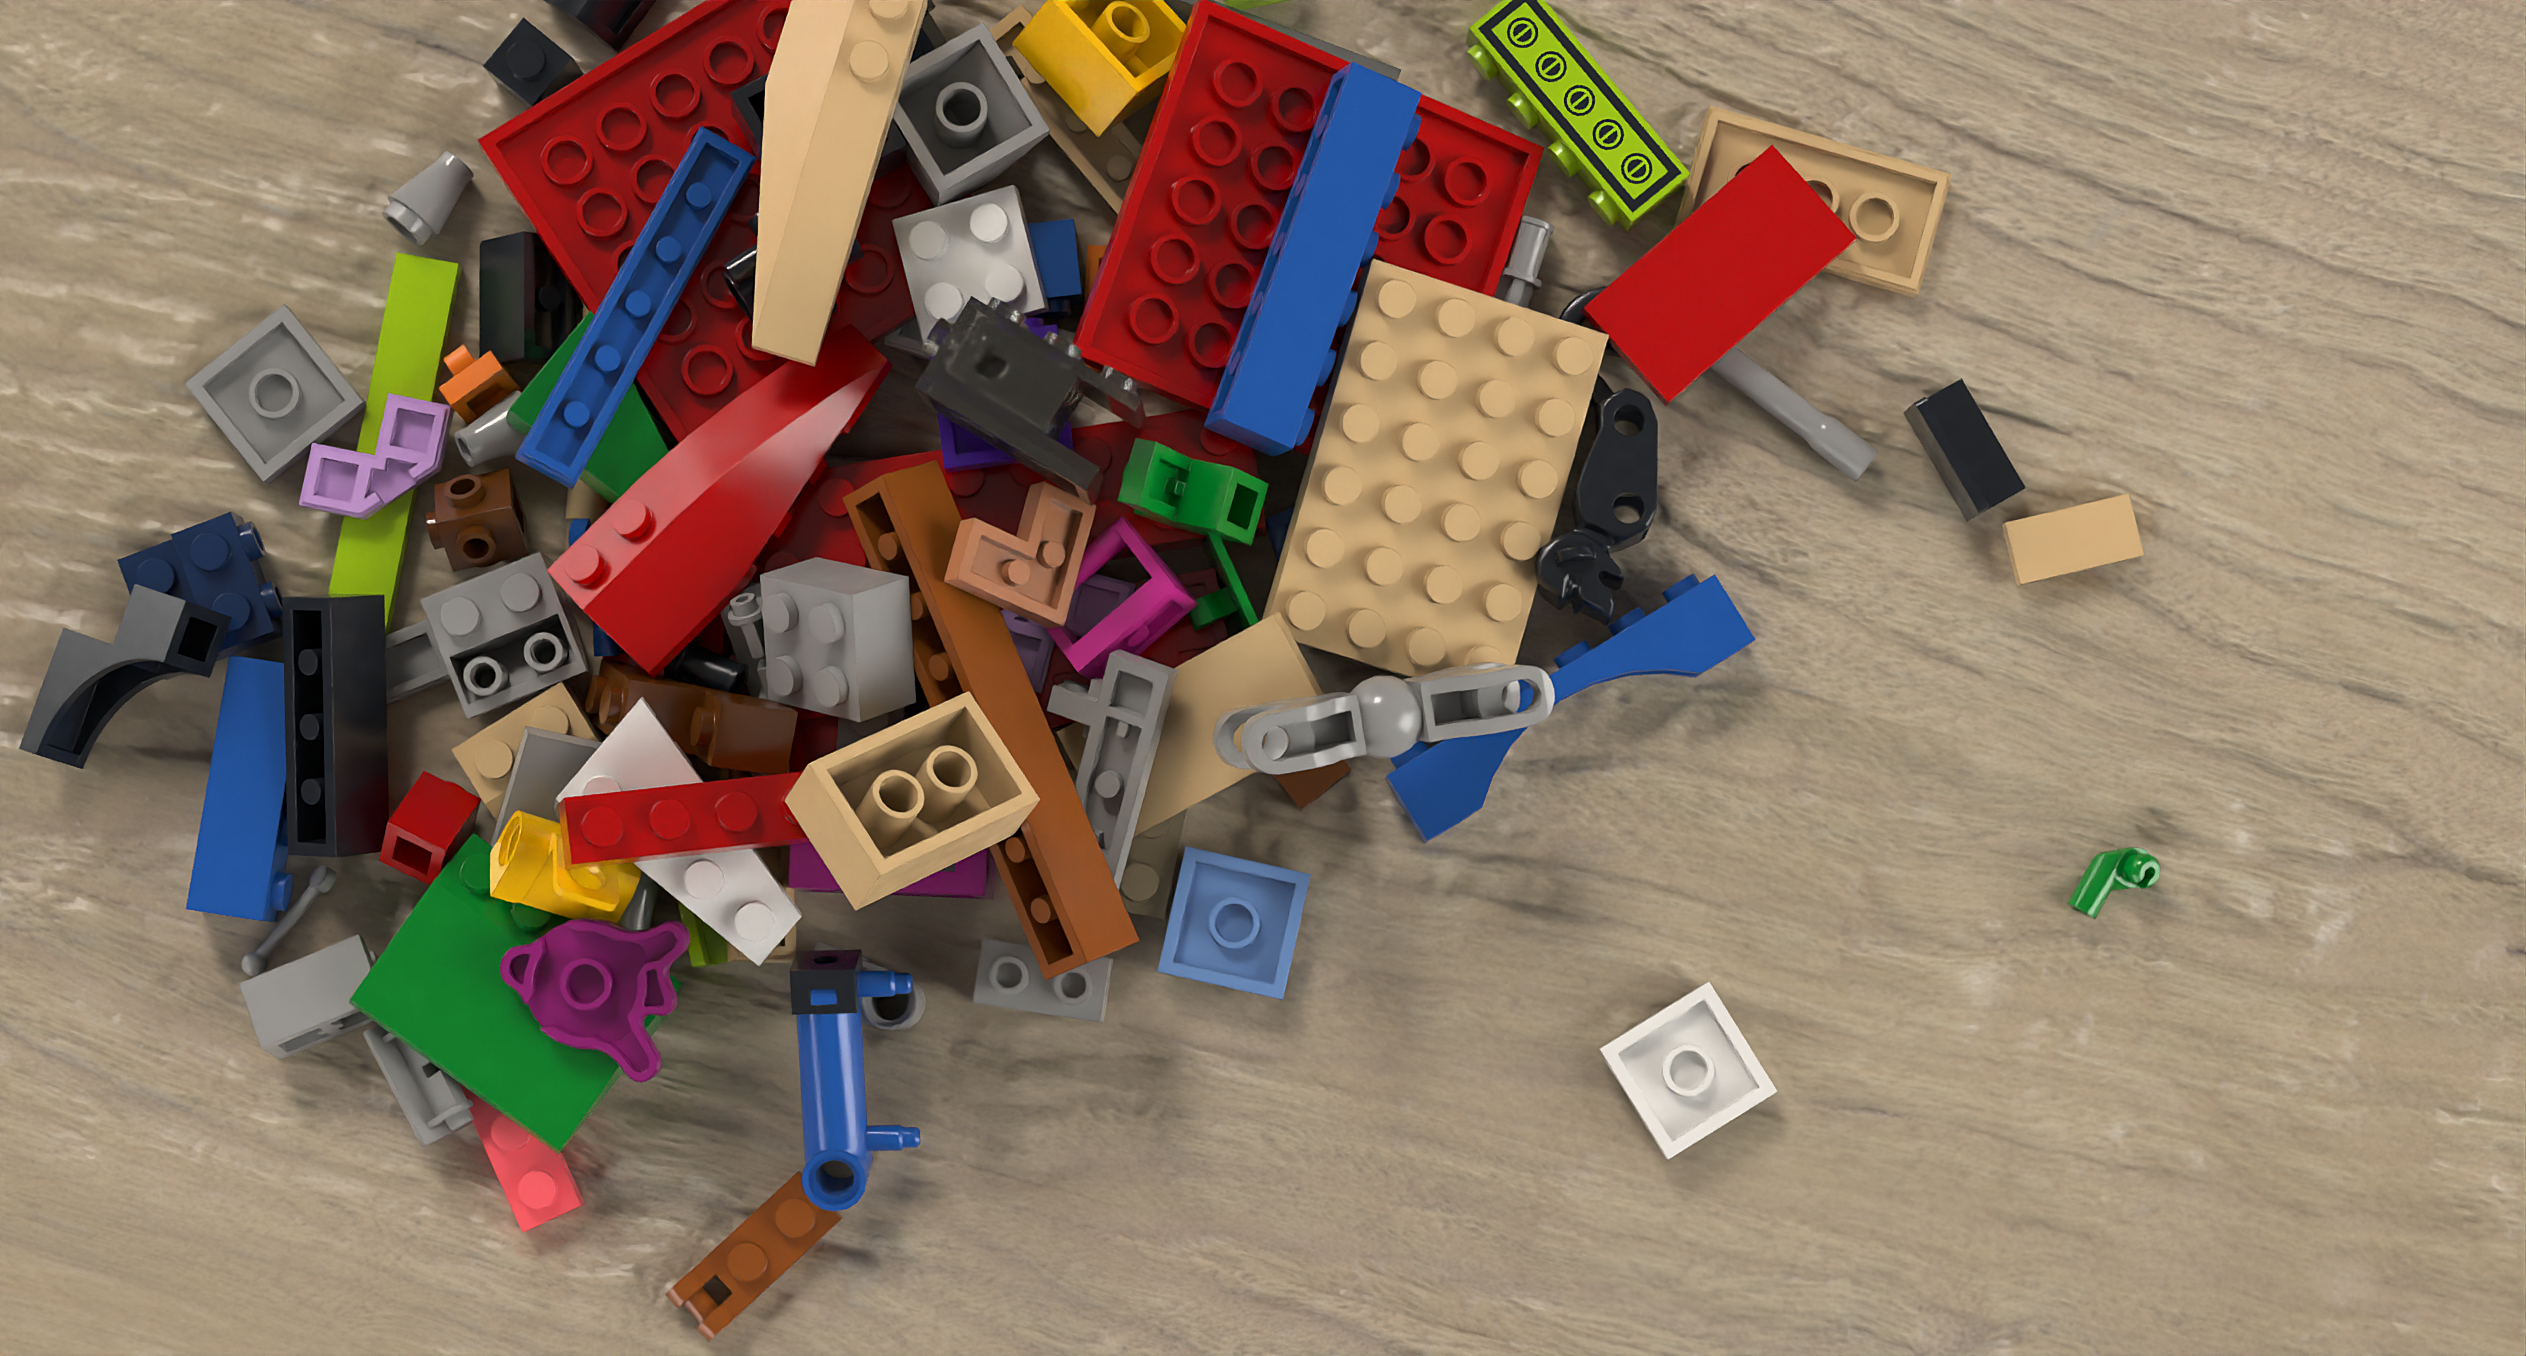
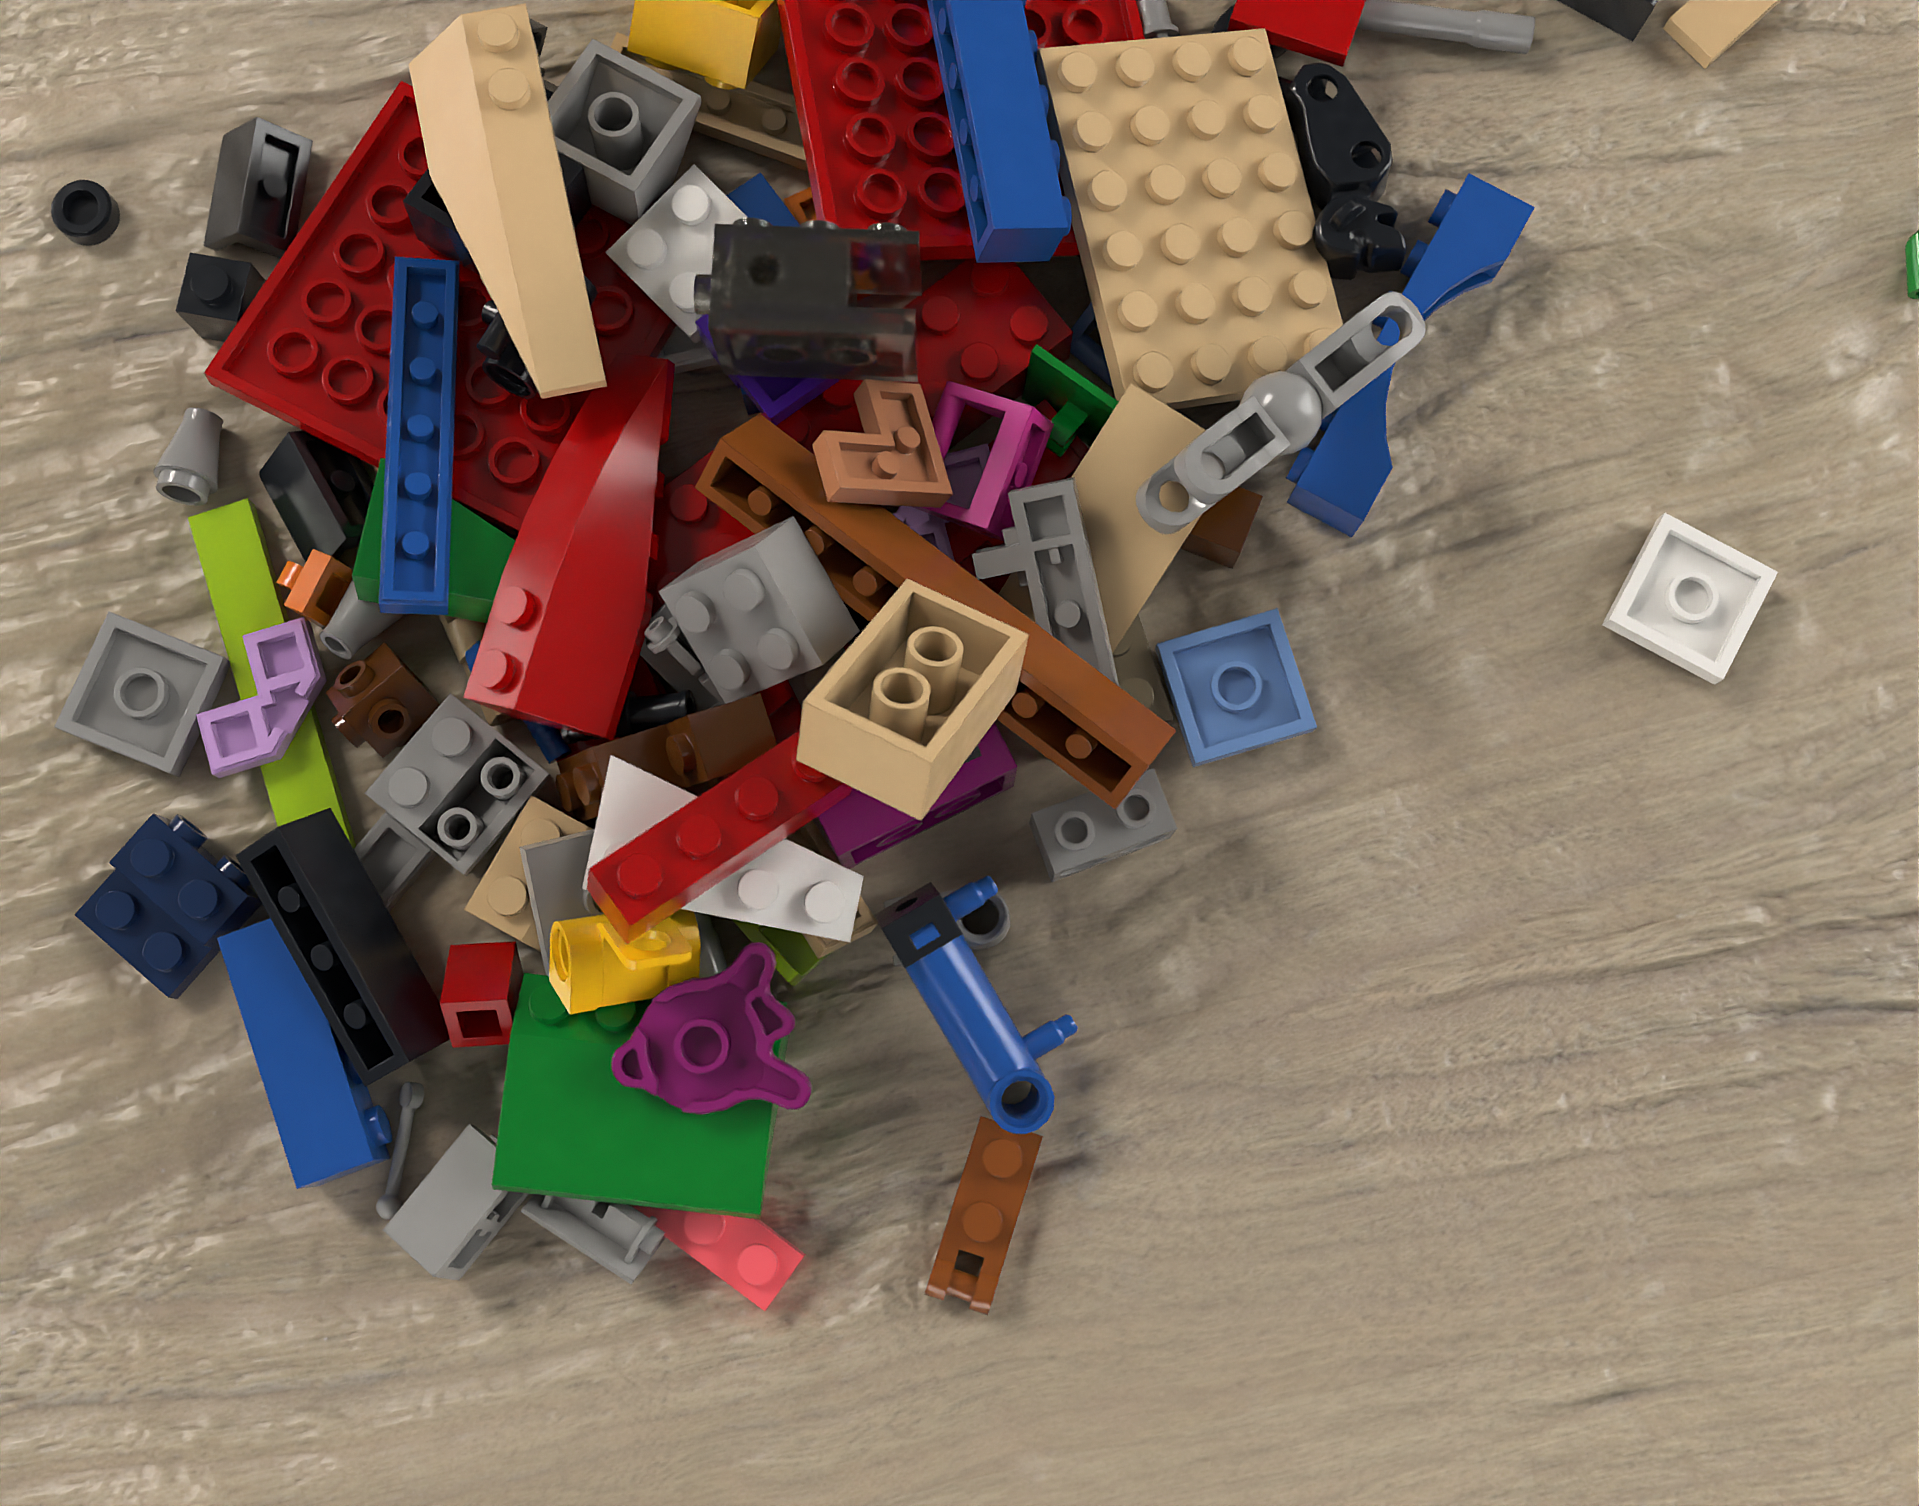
camera: 30 degrees left, 5 degrees down
(96, 678) = (106, 1026): black arch -> none
(1192, 493) = (1000, 325): green brick -> none

